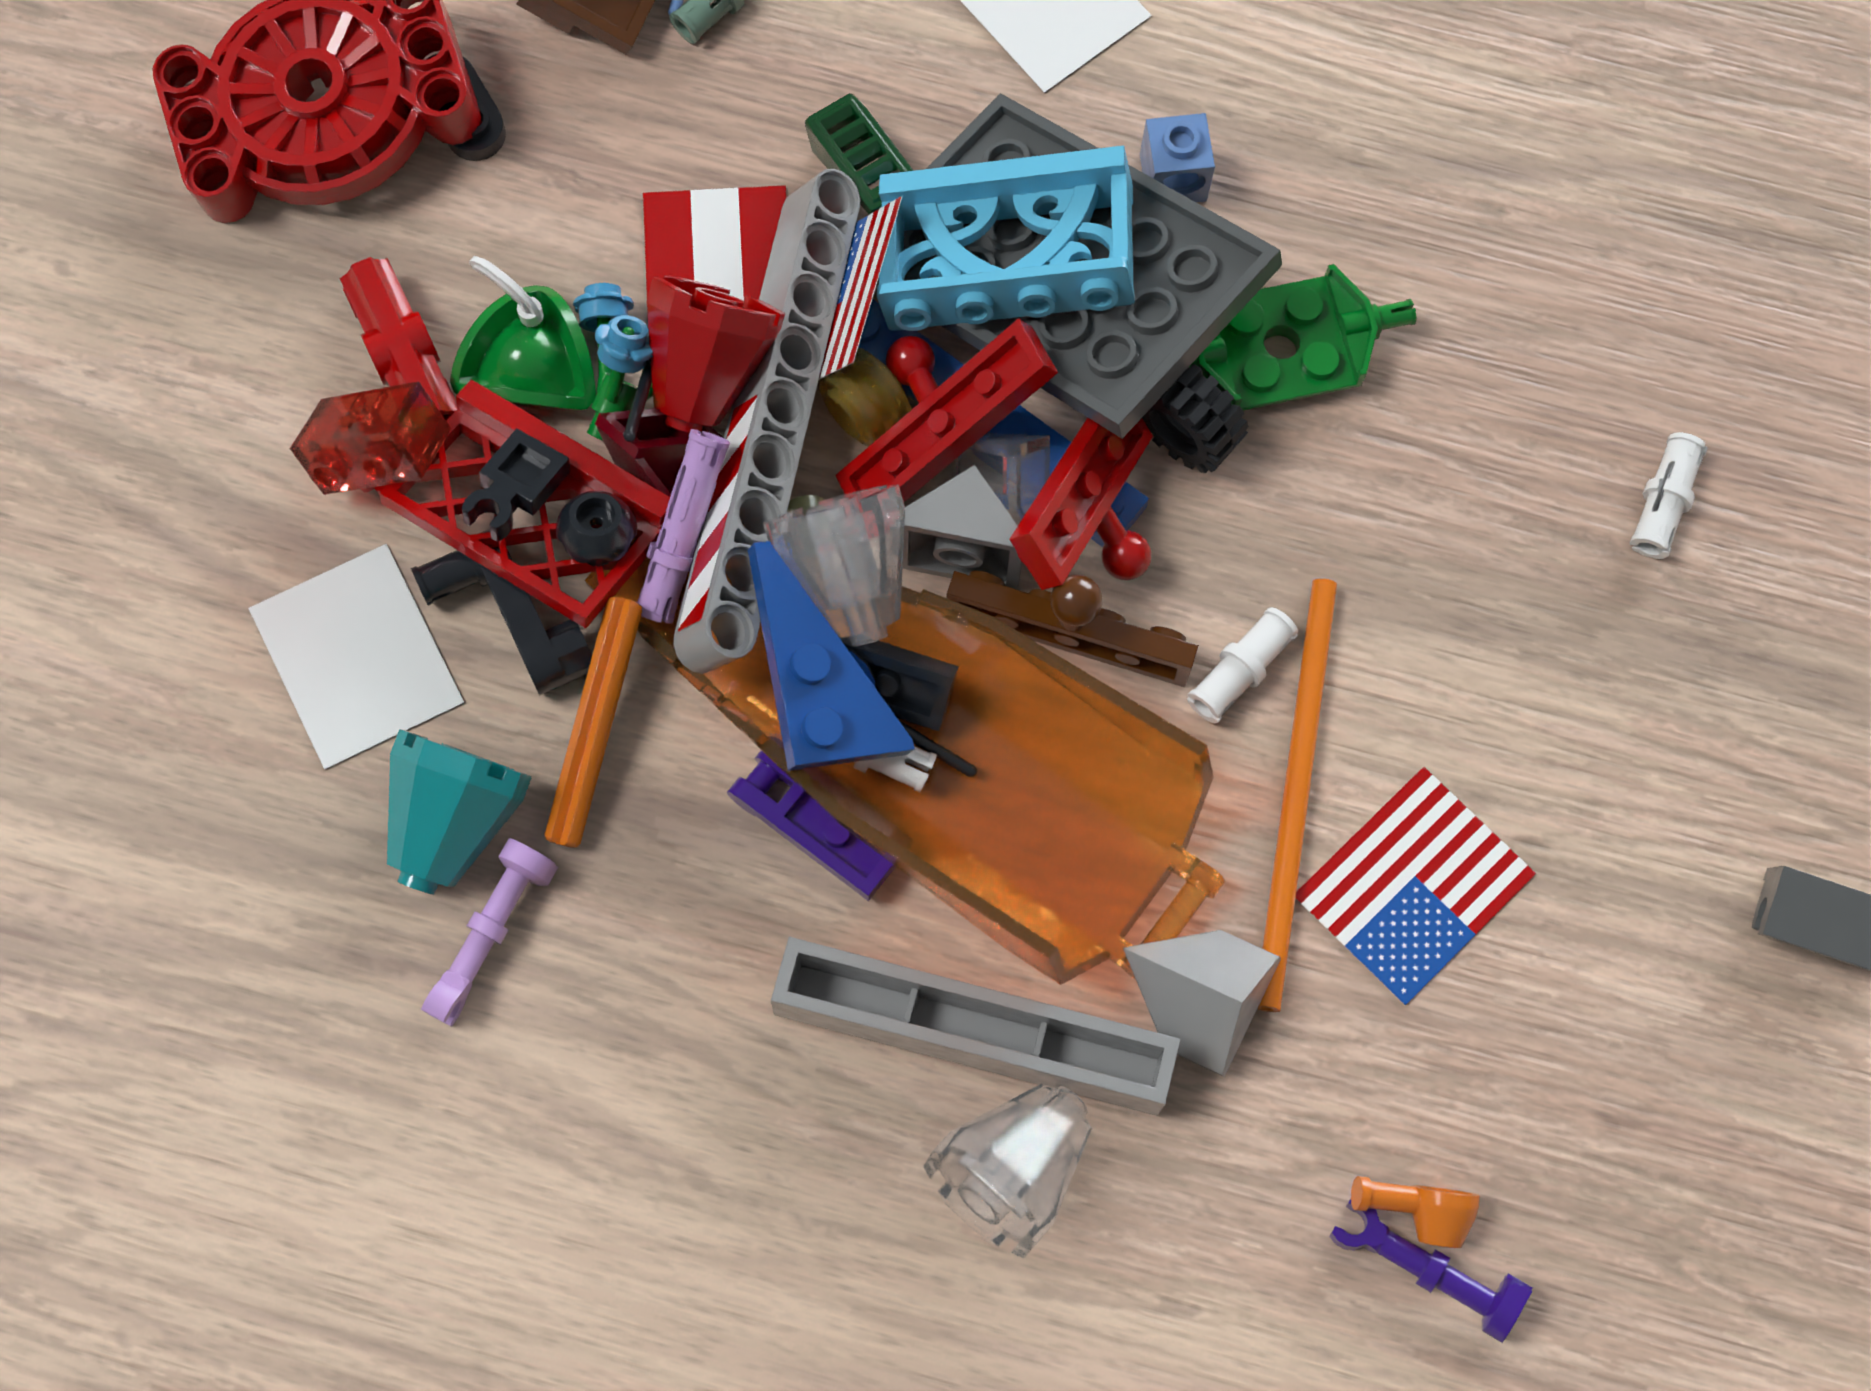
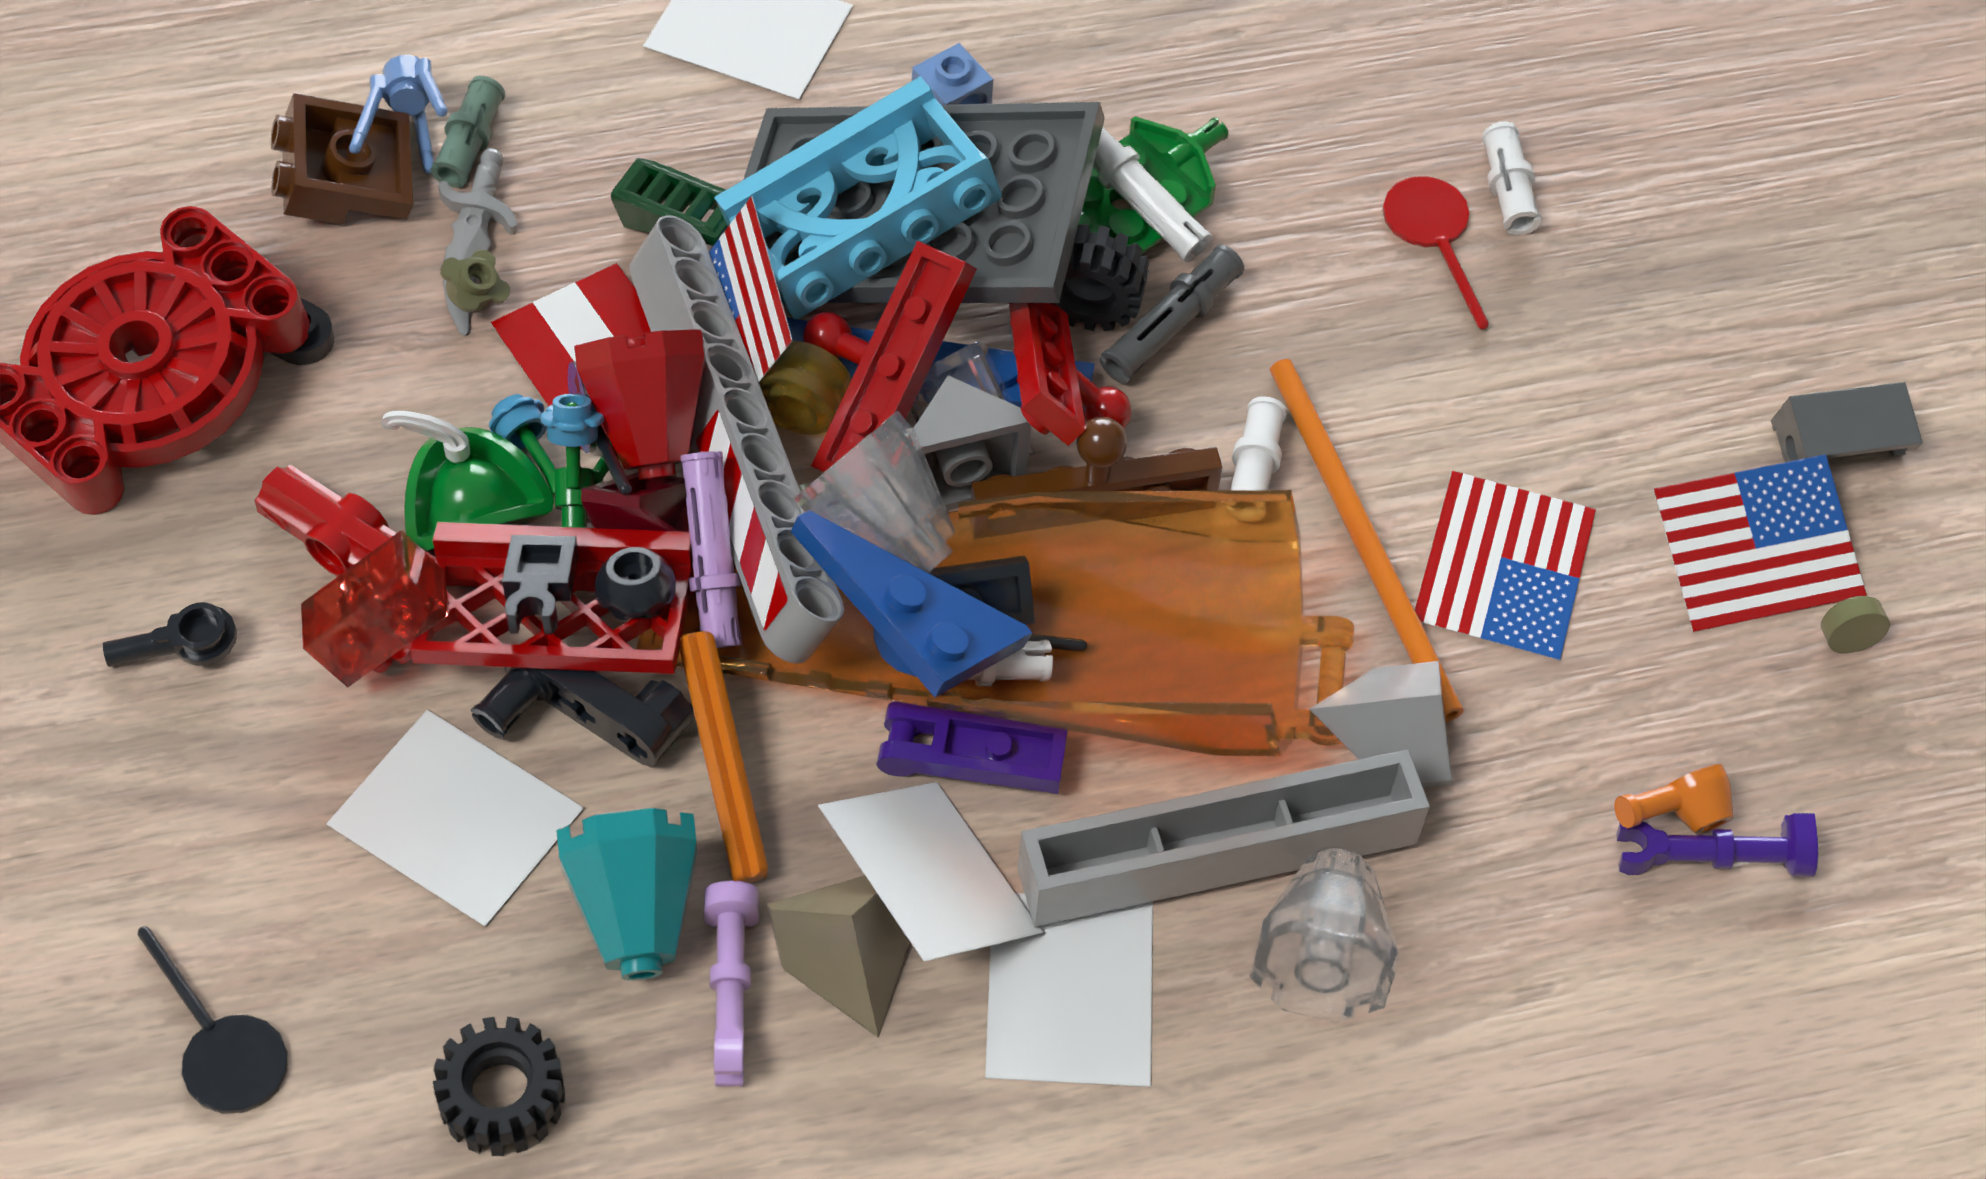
camera: 30 degrees left, 15 degrees down
(64, 782) = (231, 1060): none -> black piece
(218, 901) = (491, 1048): none -> black tyre
(232, 380) = (197, 634): none -> black plate
(605, 948) = (842, 947): none -> dark tan slope
(631, 161) = (467, 294): none -> olive plate
(671, 98) = (474, 212): none -> light grey piece
(704, 921) = (930, 870): none -> white sticker
(770, 1094) = (1074, 1001): none -> white sticker
(1276, 474) = (1189, 297): none -> dark grey pin
(1283, 316) = (1123, 172): none -> white pin
(1566, 492) = (1433, 215): none -> red piece
(1666, 991) = (1759, 542): none -> sticker
(1703, 1120) = (1855, 624): none -> olive tile

